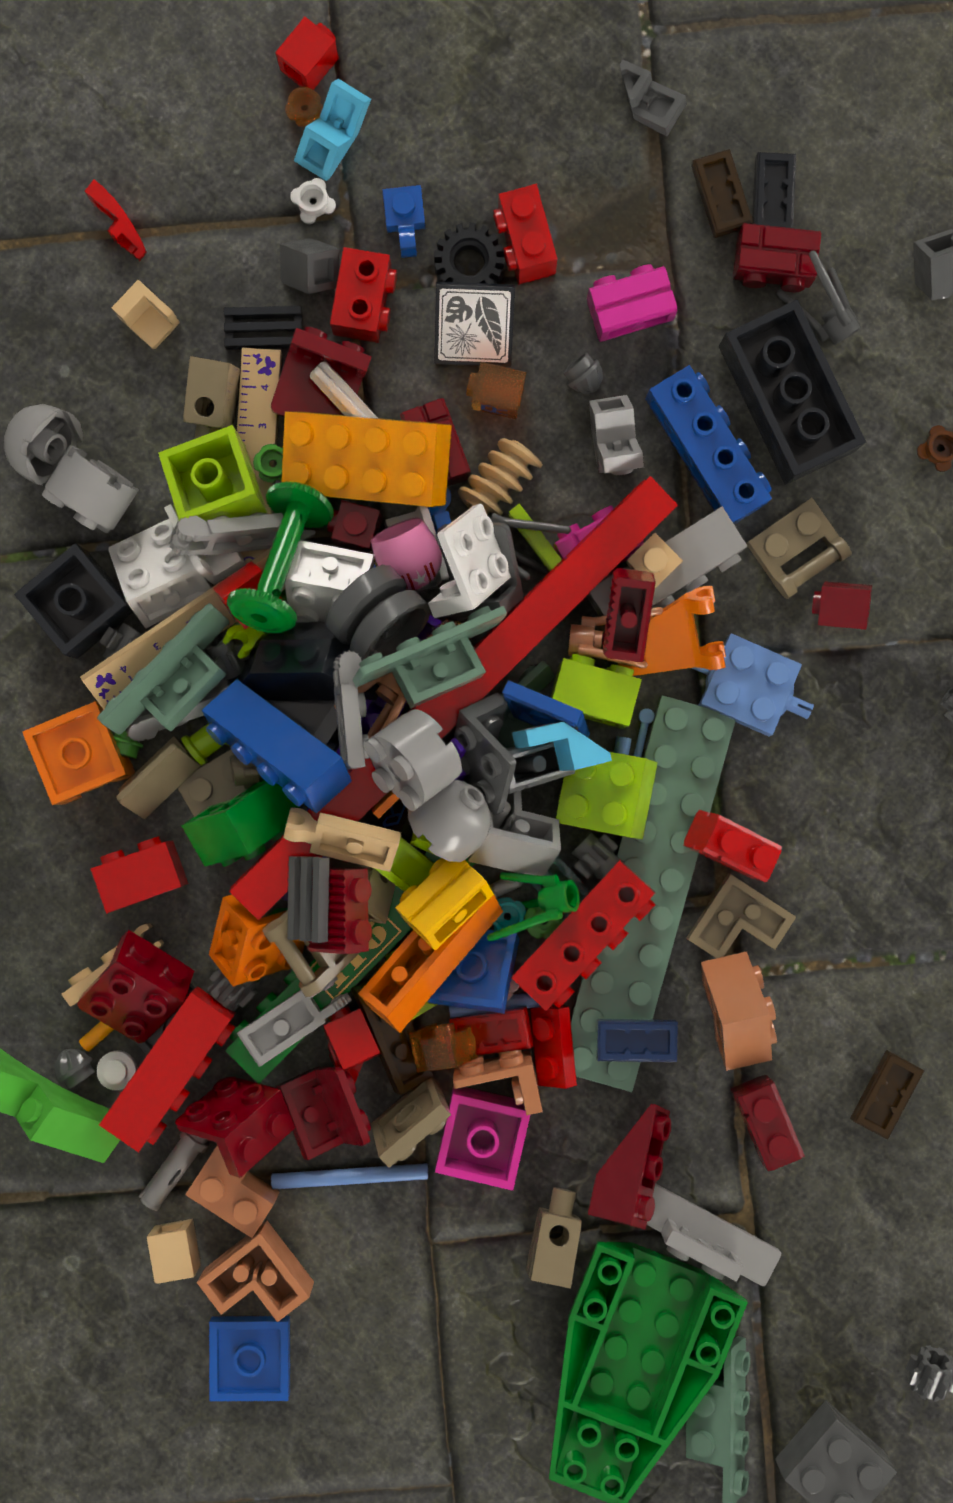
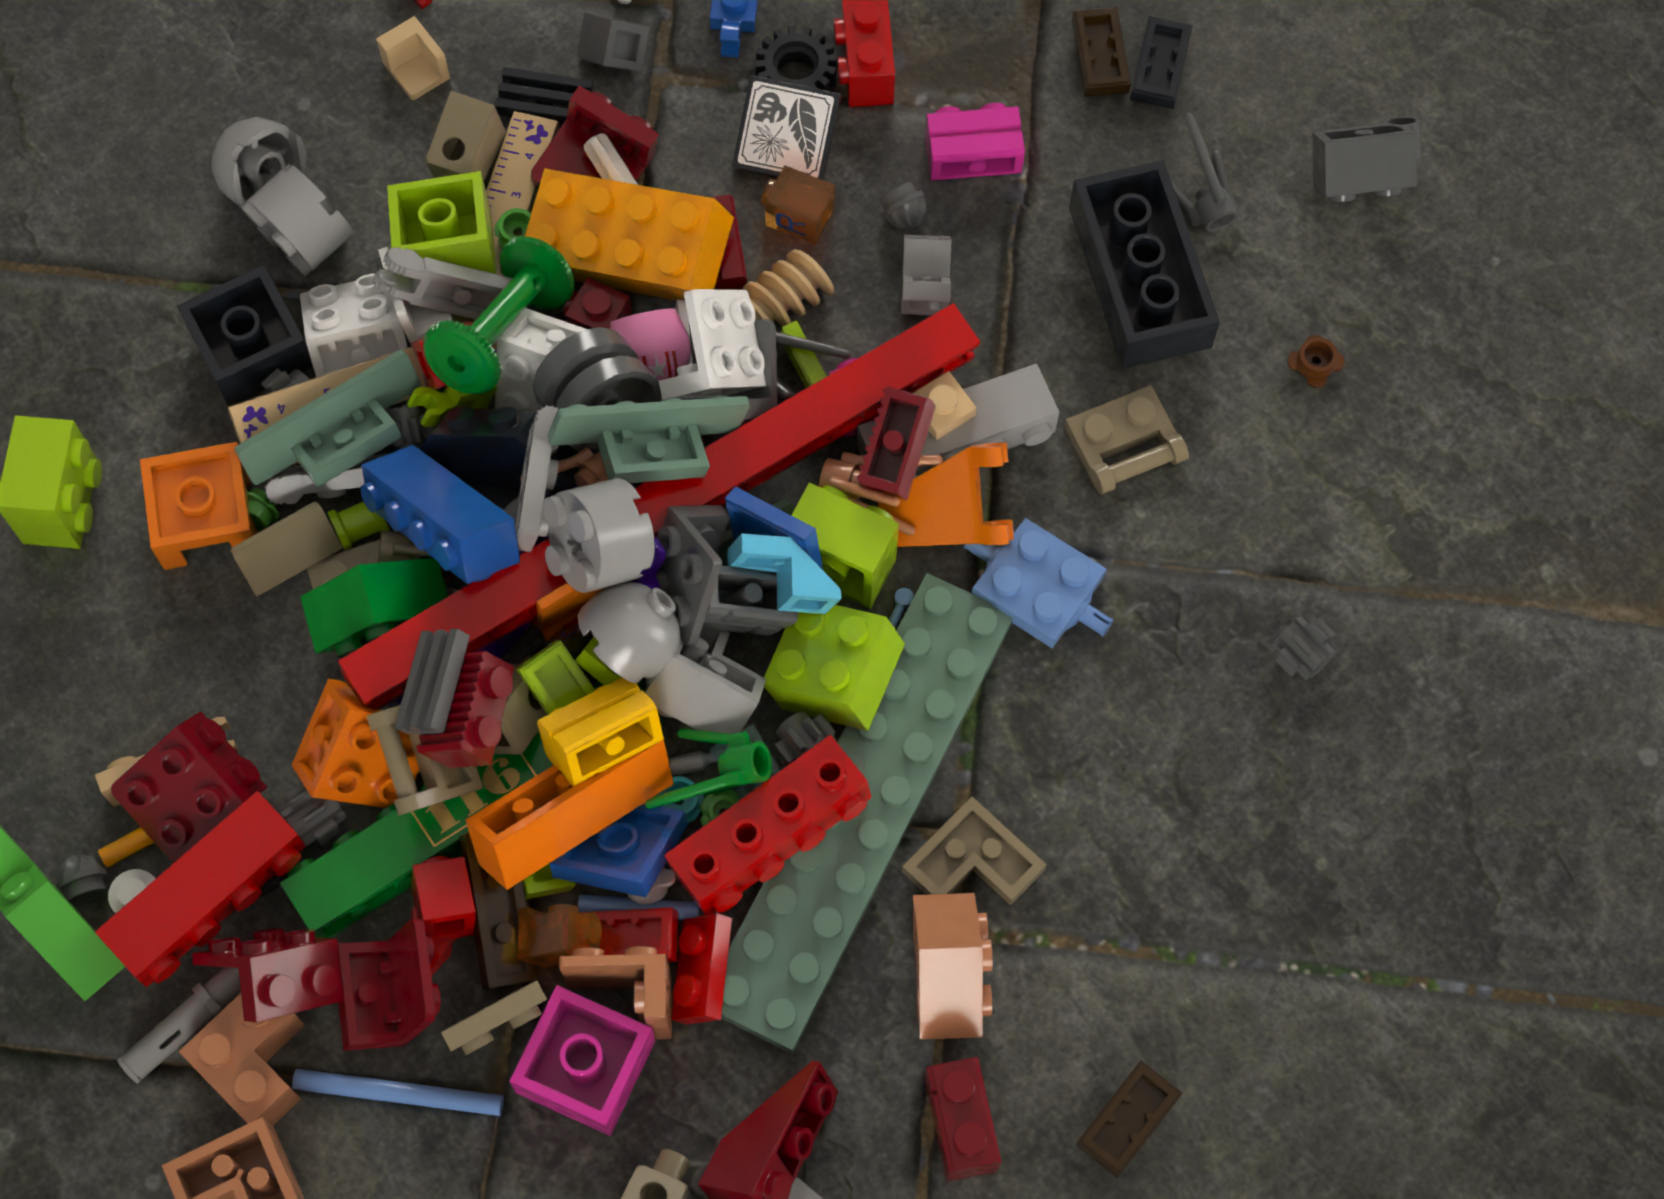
camera: 10 degrees right, 20 degrees down
(140, 875) = (231, 657): red brick -> none
(173, 1251) = (141, 1135): tan panel -> none
(287, 1024) = (373, 853): light grey hinge -> none
(344, 839) = (496, 622): tan plate -> none
(362, 295) = (666, 79): red brick -> none
(637, 1040) = (809, 972): dark blue plate -> none
(707, 445) = (1035, 305): blue brick -> none
(732, 845) = (979, 756): red brick -> none
(775, 257) = (1150, 123): dark red brick -> none
(843, 605) = (1167, 505): dark red brick -> none

